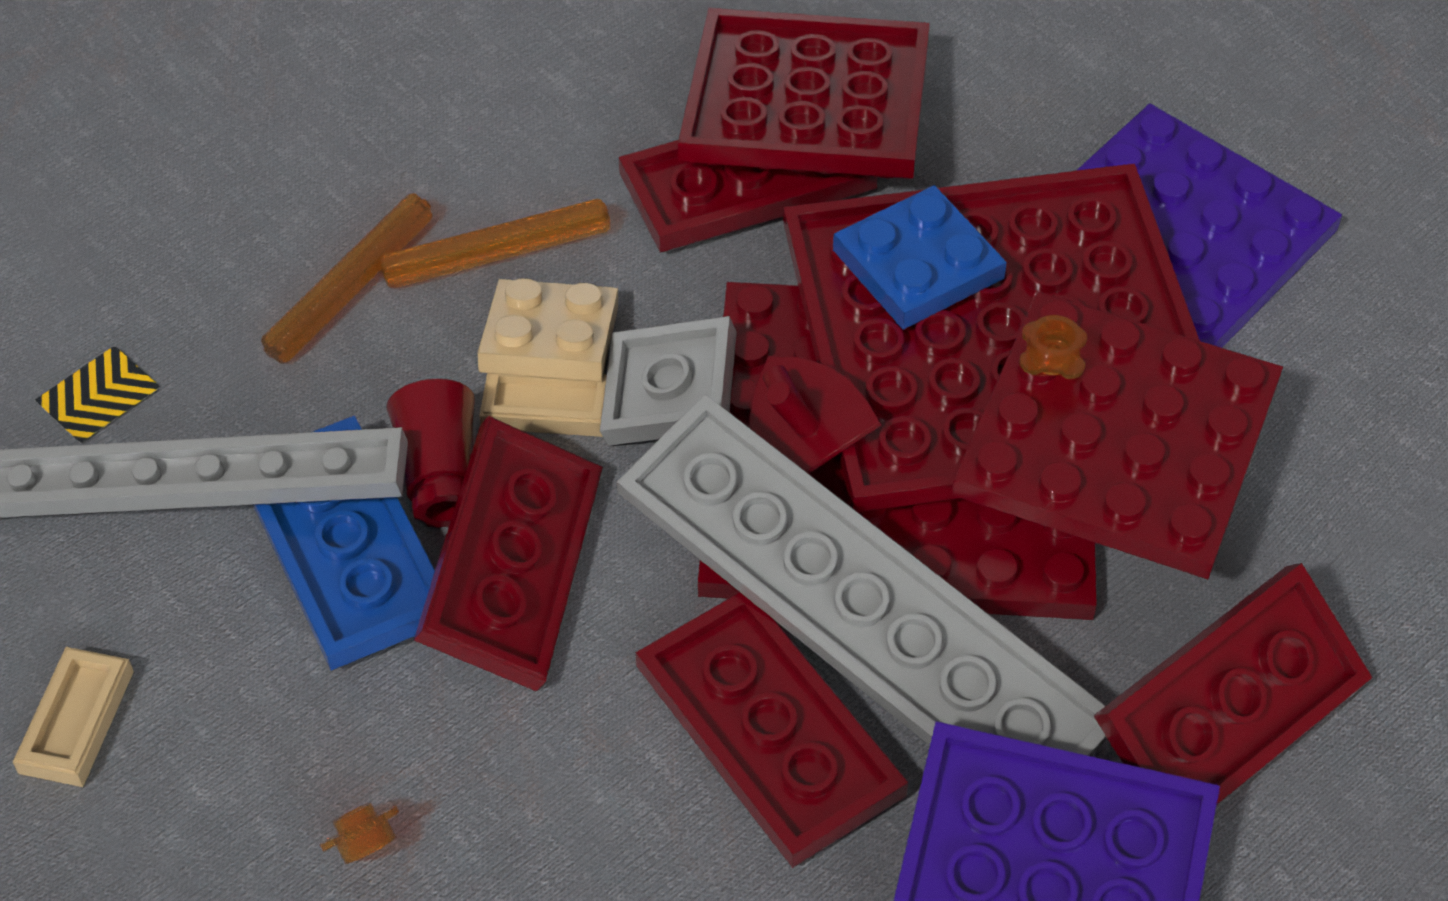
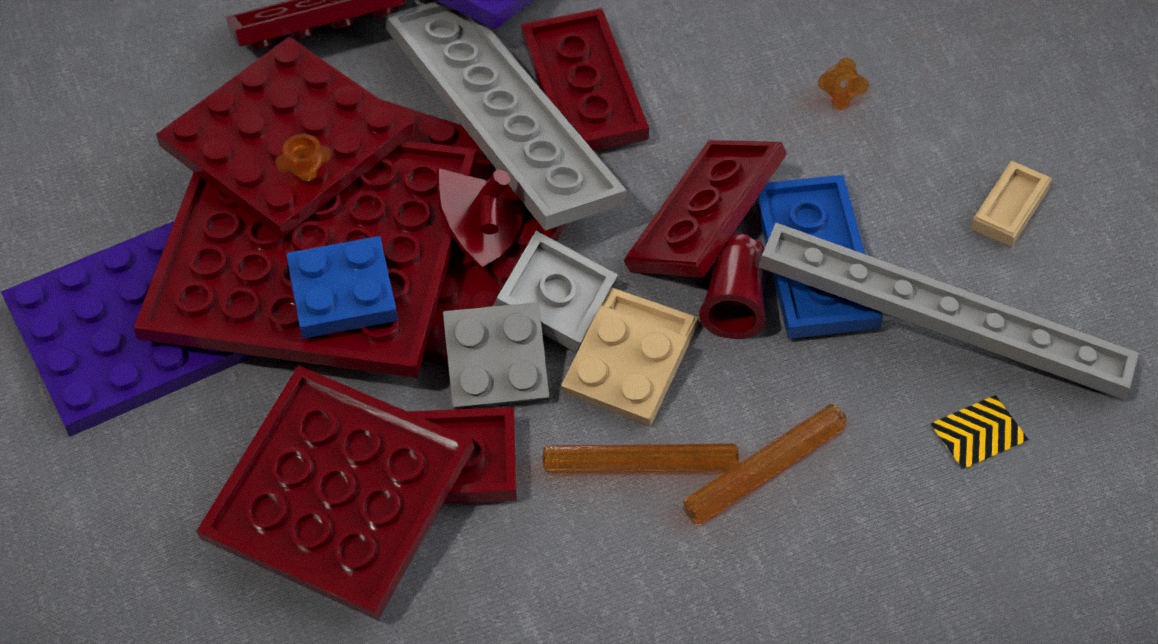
camera: 160 degrees left, 0 degrees up
(706, 280) = (496, 355): none -> light grey plate

